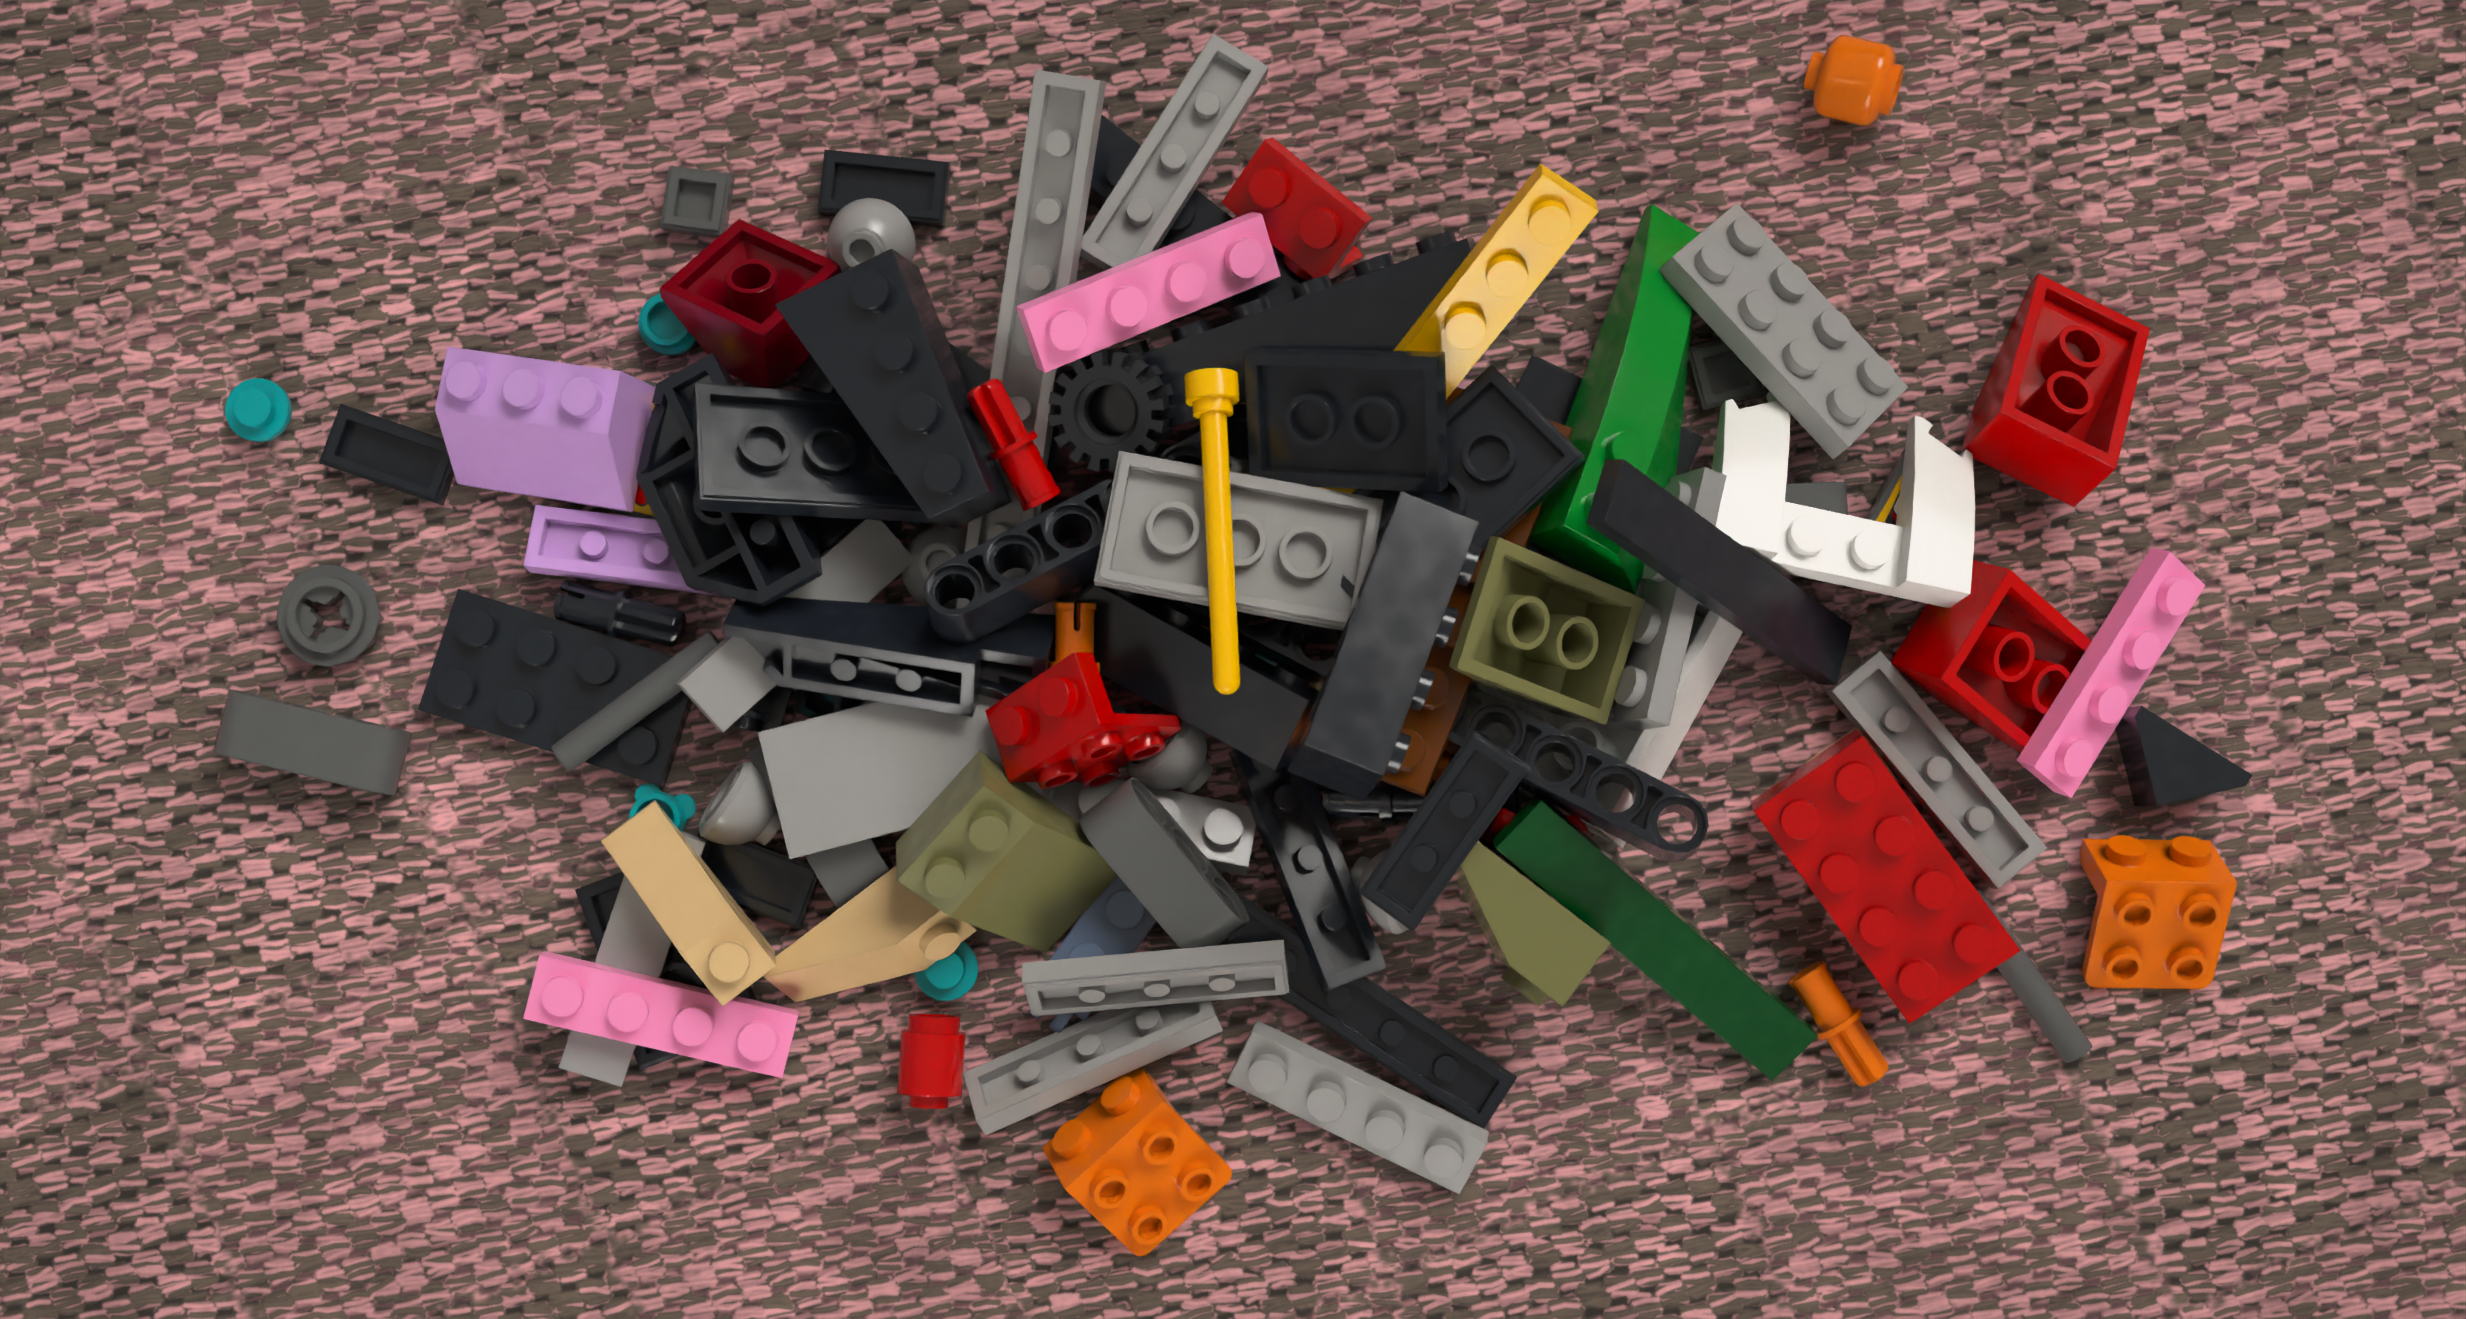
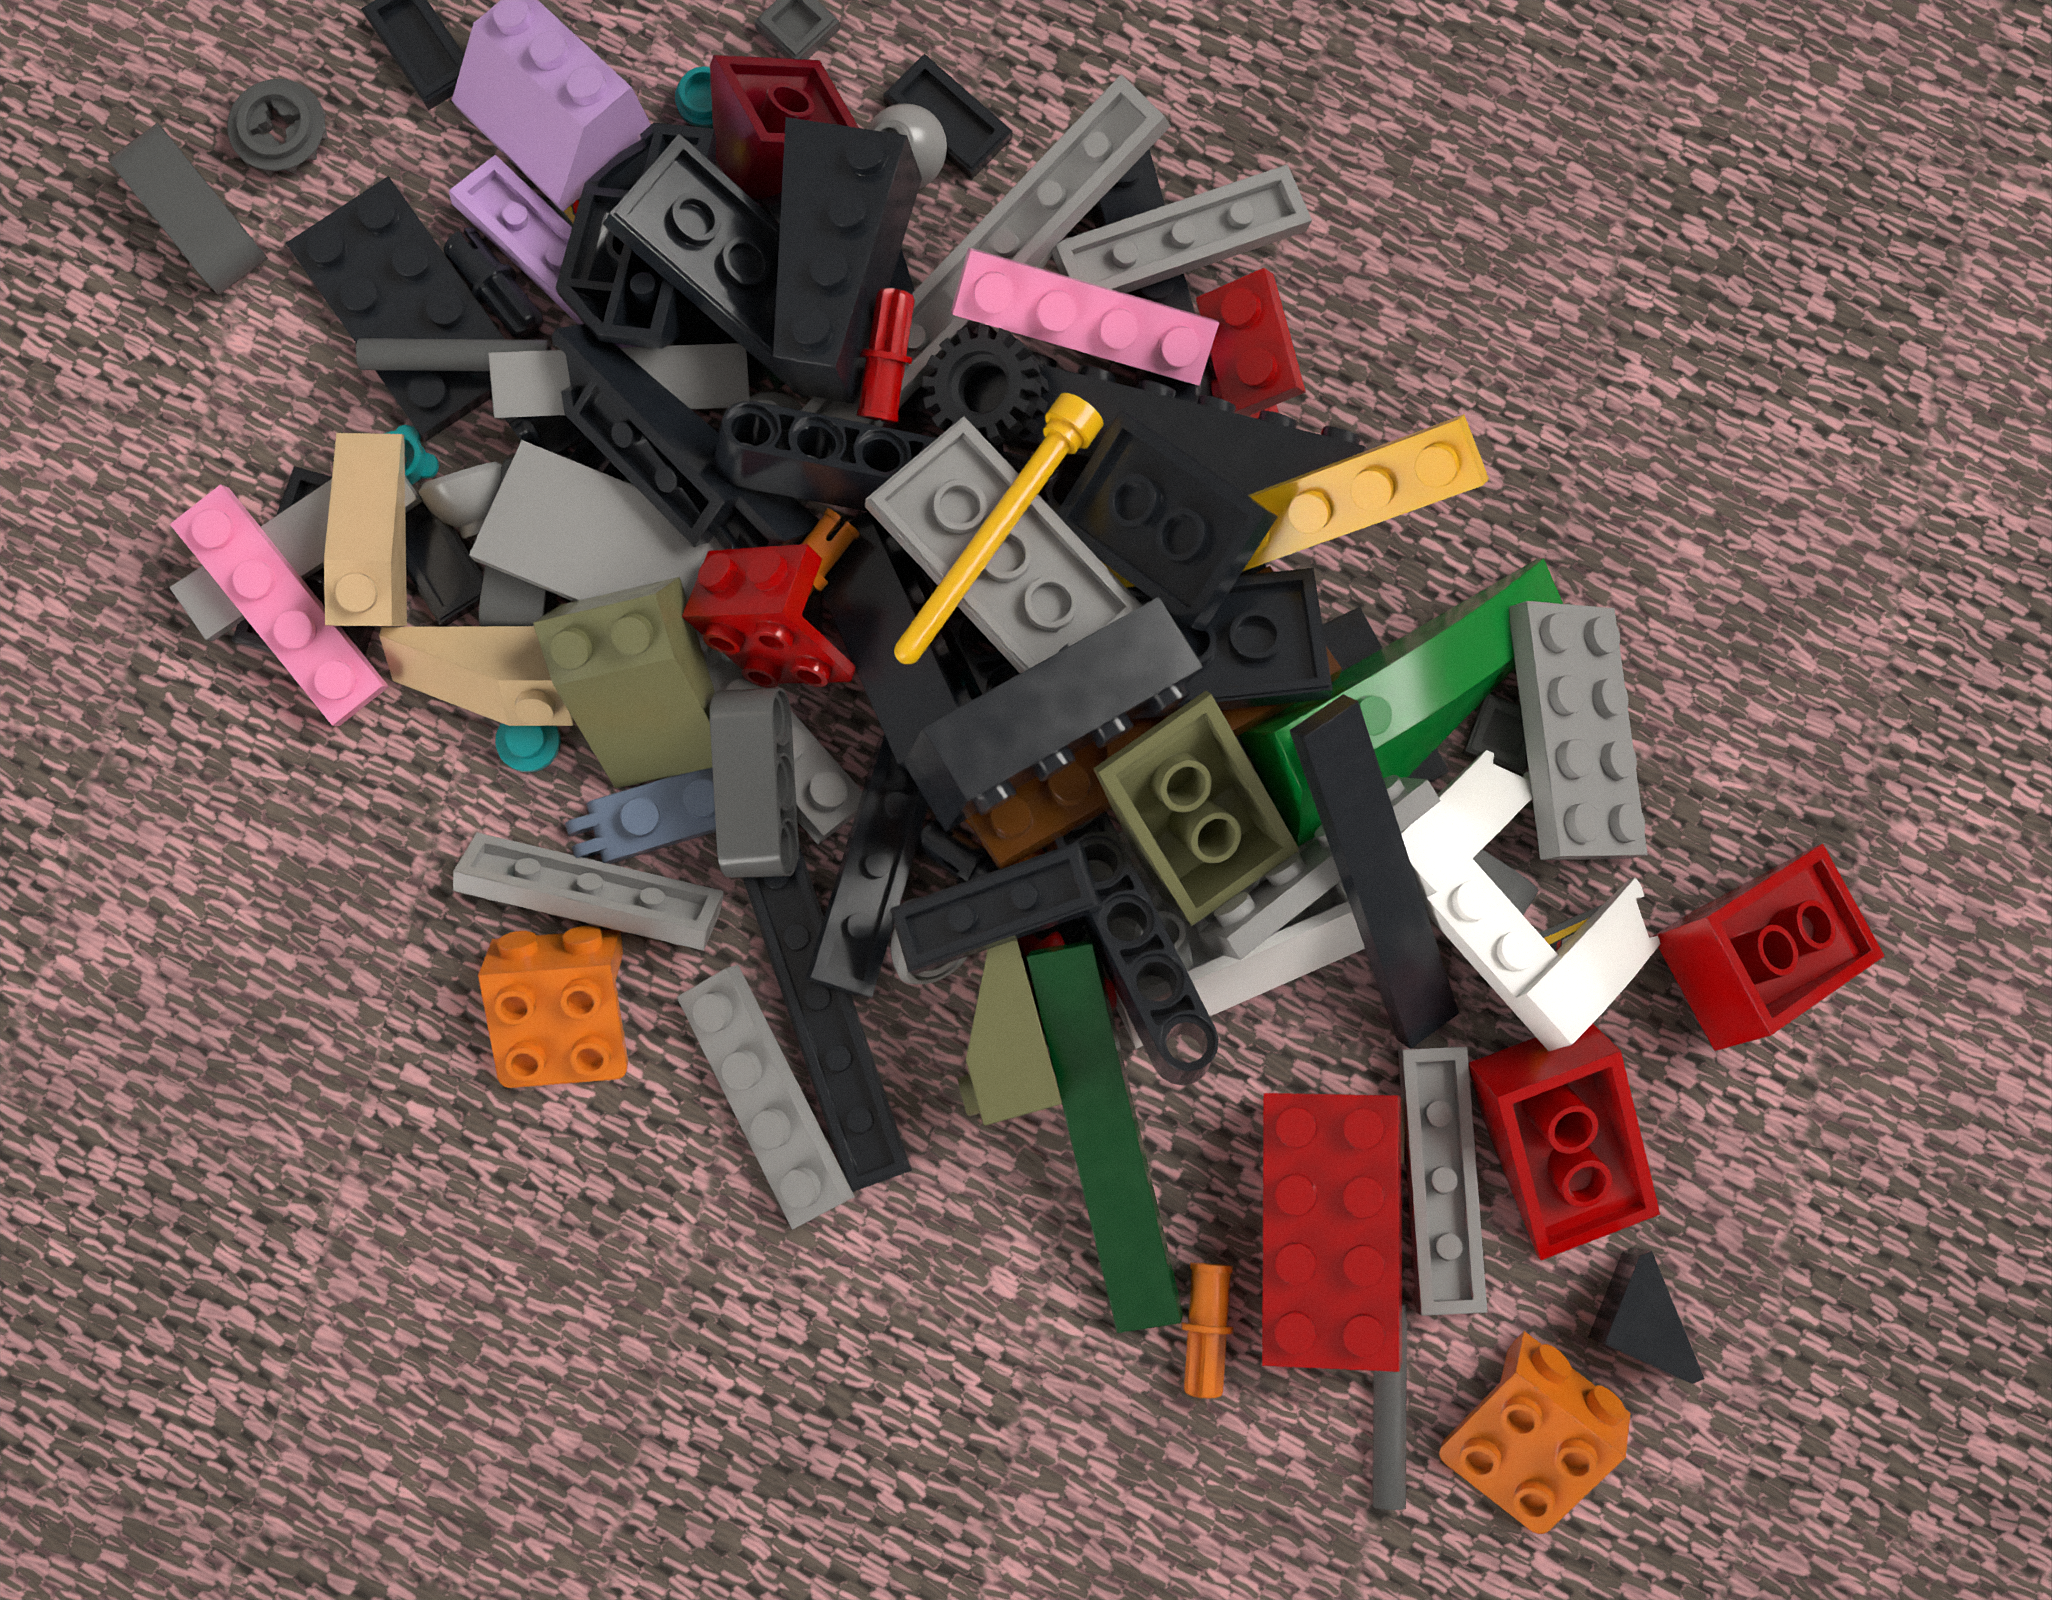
camera: 35 degrees right, 5 degrees down
(931, 1060) = (459, 802): red brick -> none
(1156, 978) = (682, 865): light grey tile -> none
(1179, 764) = (831, 710): light grey brick -> none
(1854, 80) = (1781, 580): orange head -> none
(2111, 672) = (1647, 1208): bright pink plate -> none

